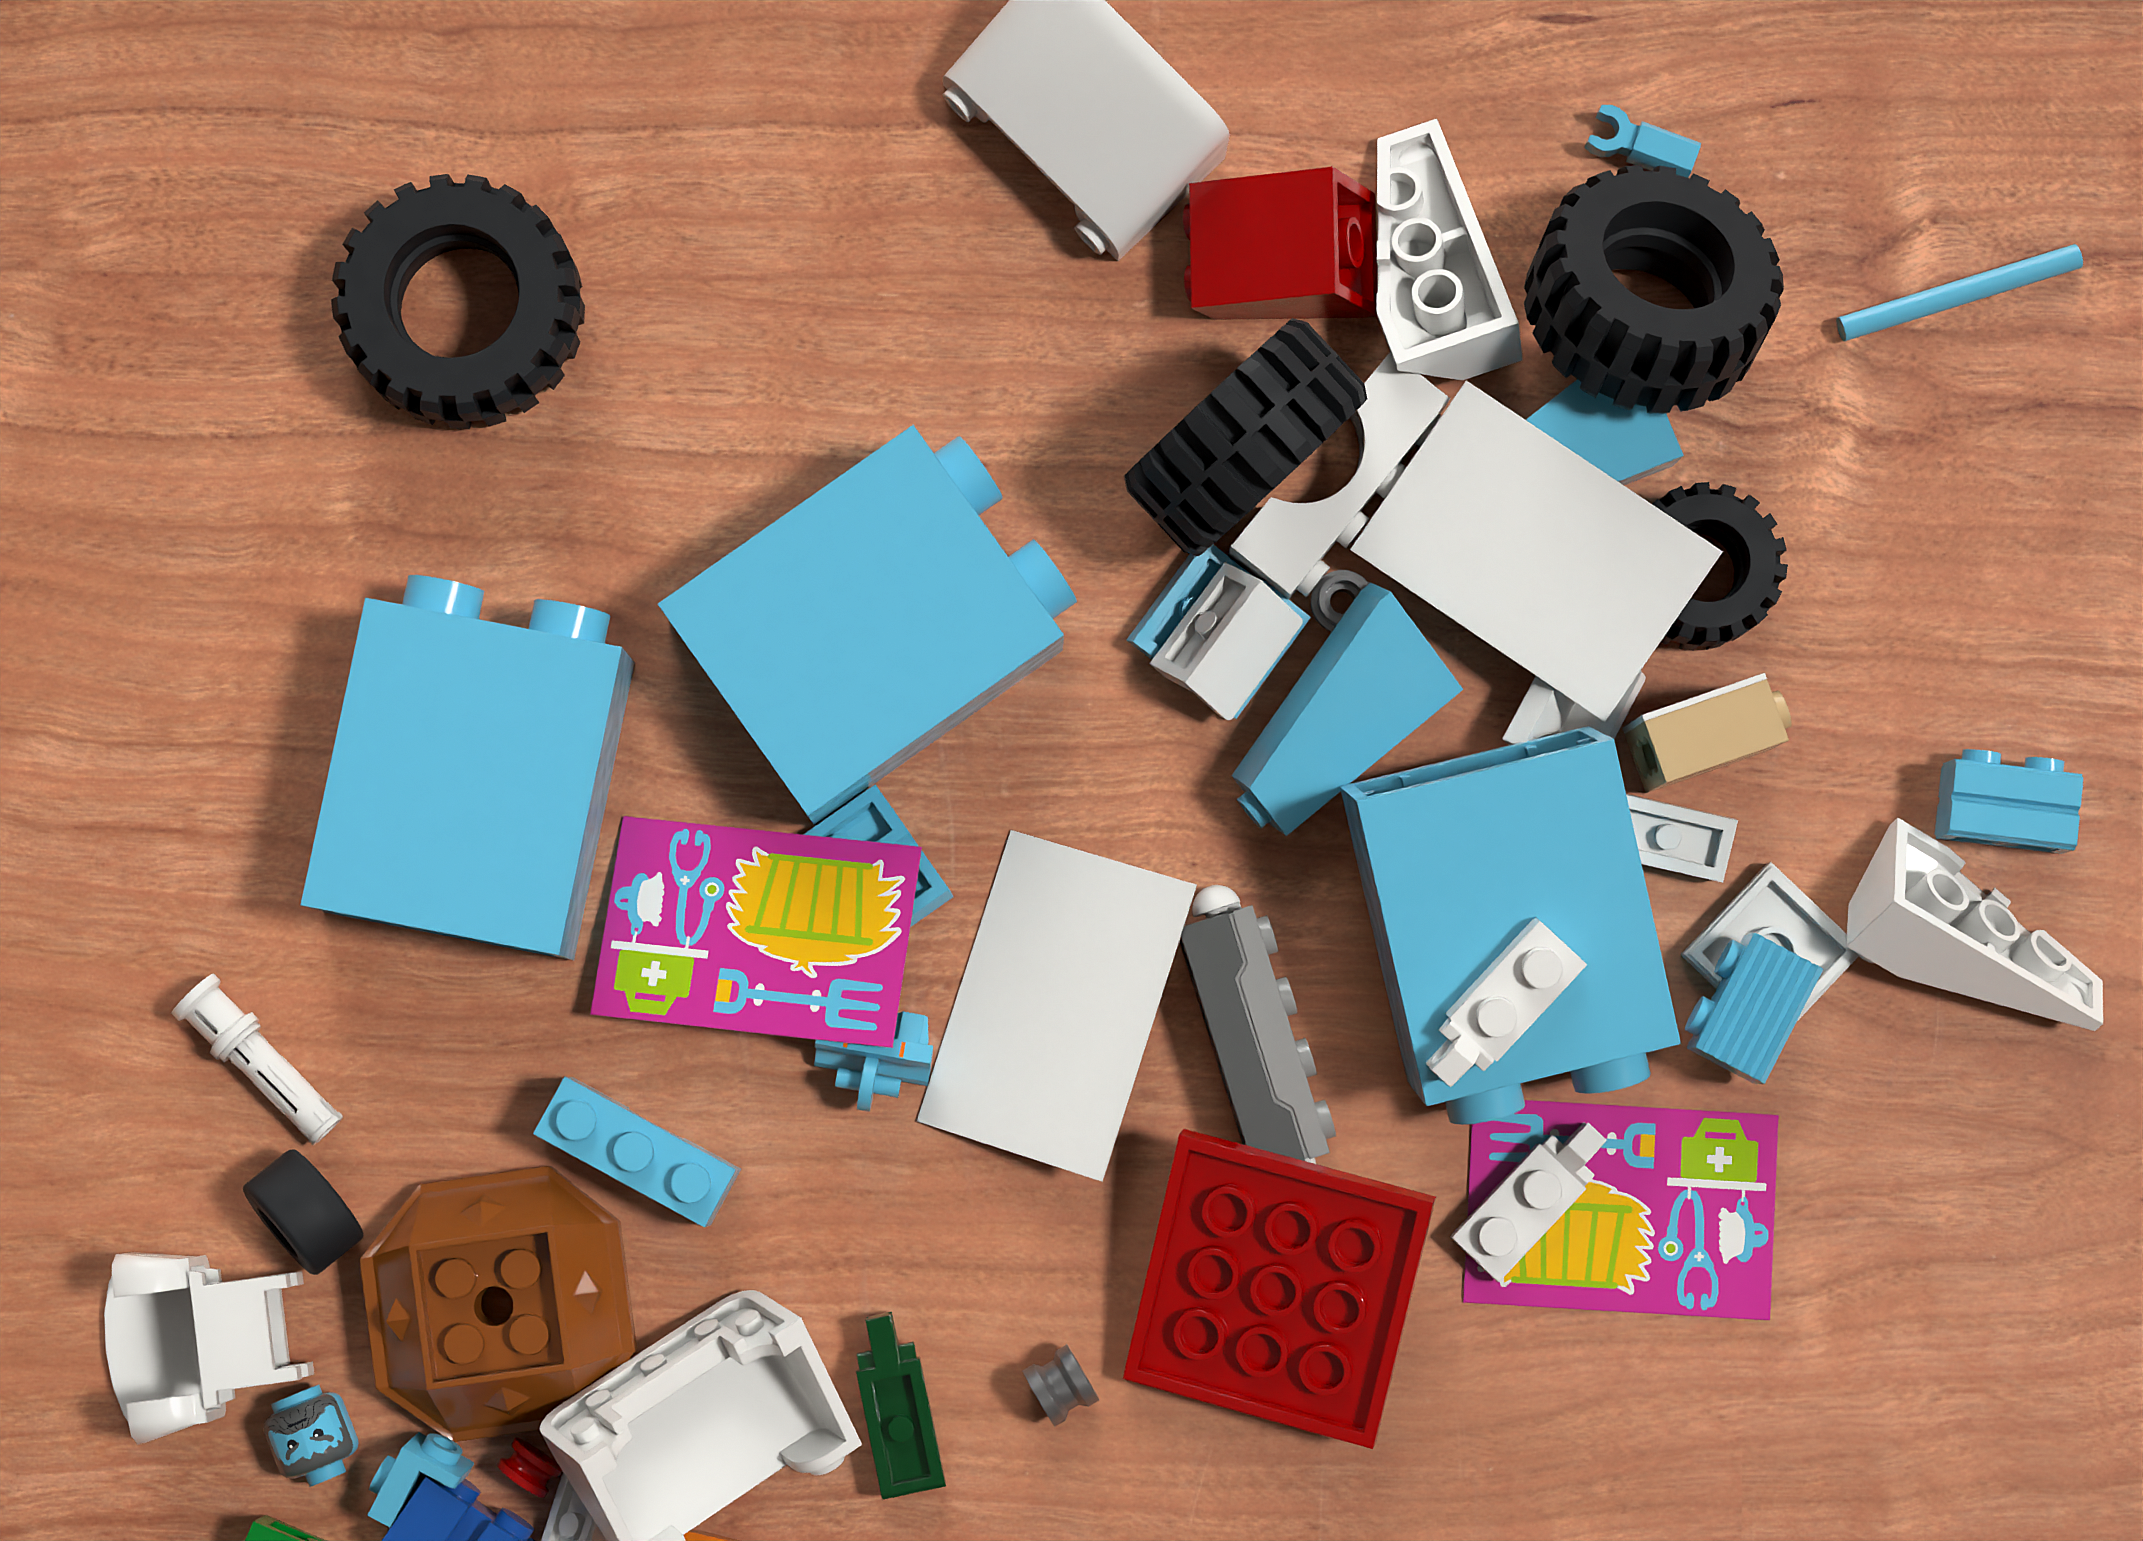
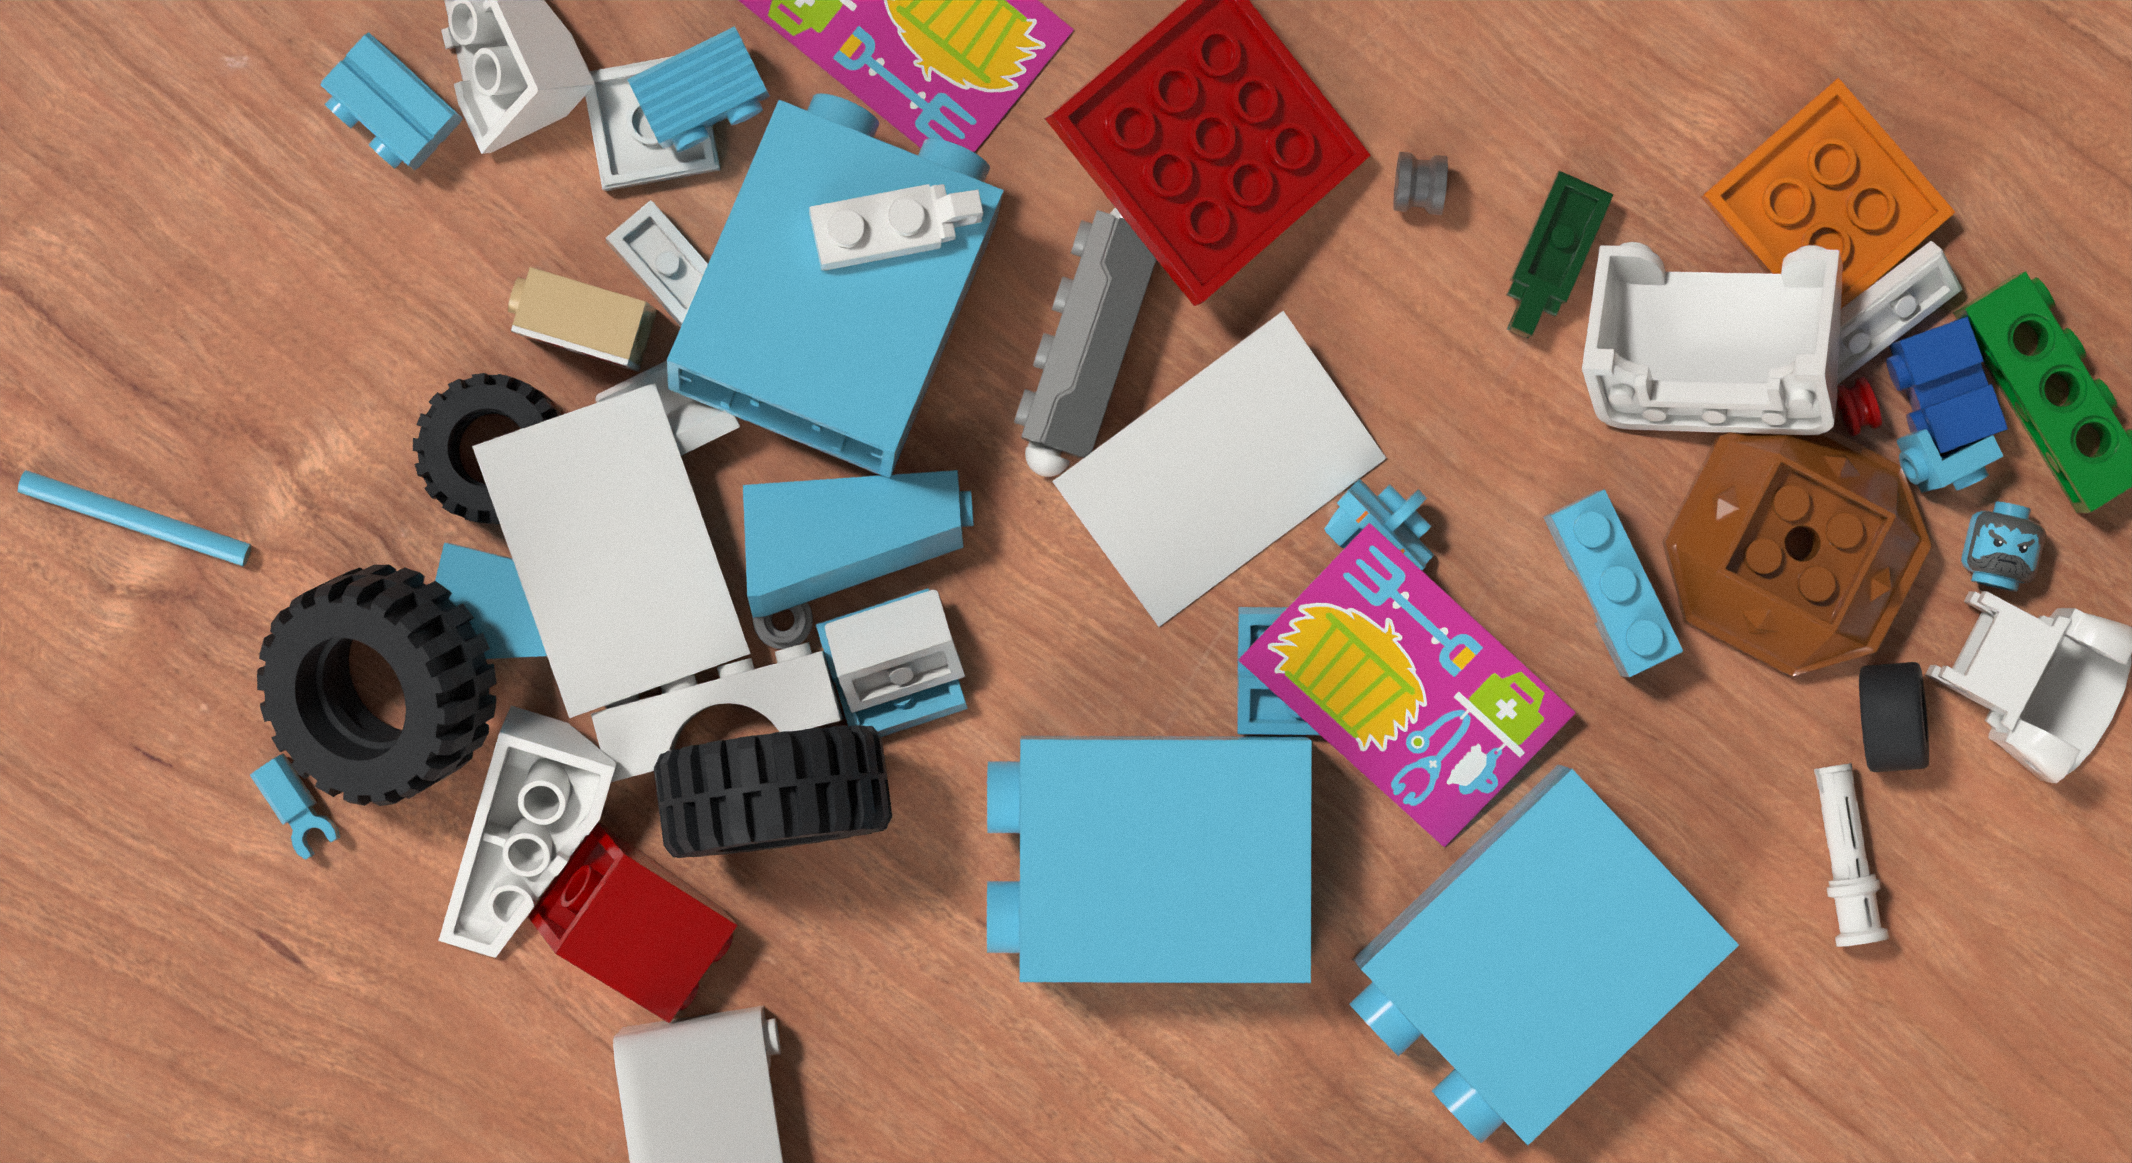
camera: 140 degrees left, 5 degrees up
(1528, 1201) = (971, 68): white hinge -> none

